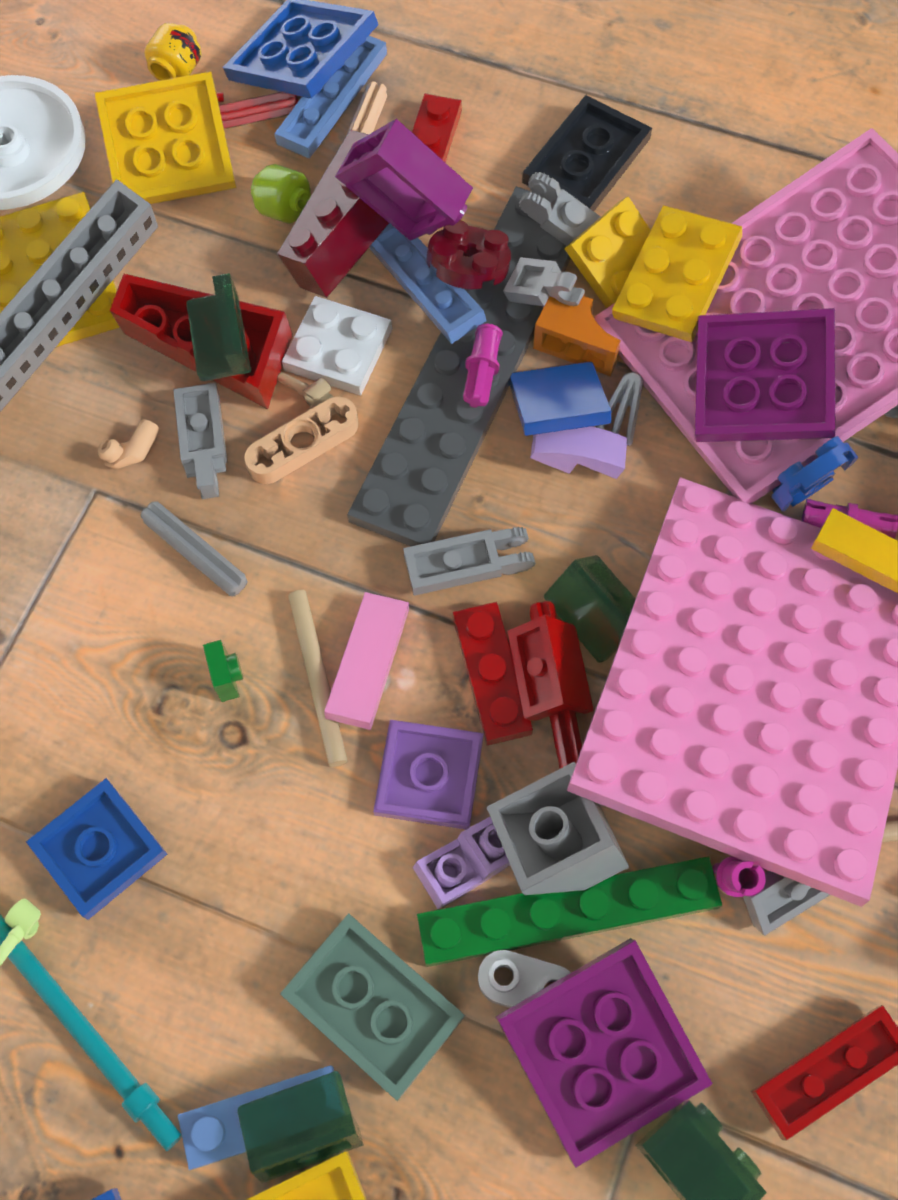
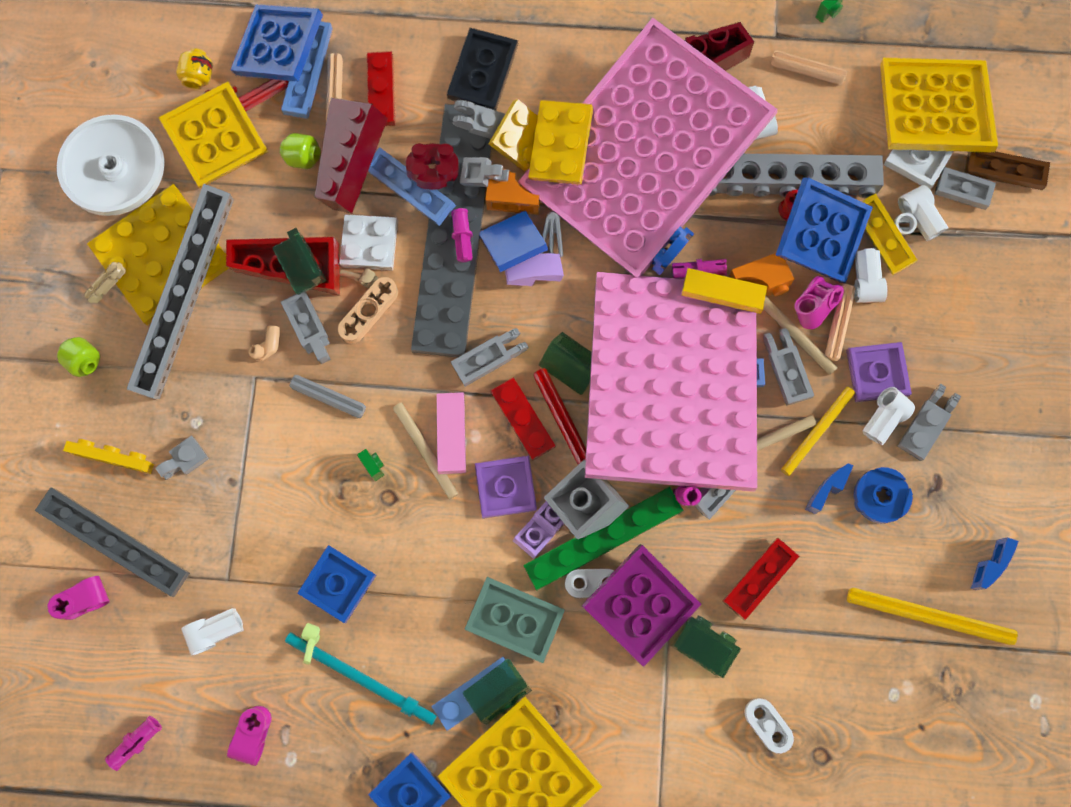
camera: 15 degrees left, 10 degrees up
(404, 181) = (380, 134): magenta window -> none
(549, 668) = (554, 408): red panel -> none
(766, 376) = (629, 198): magenta plate -> none

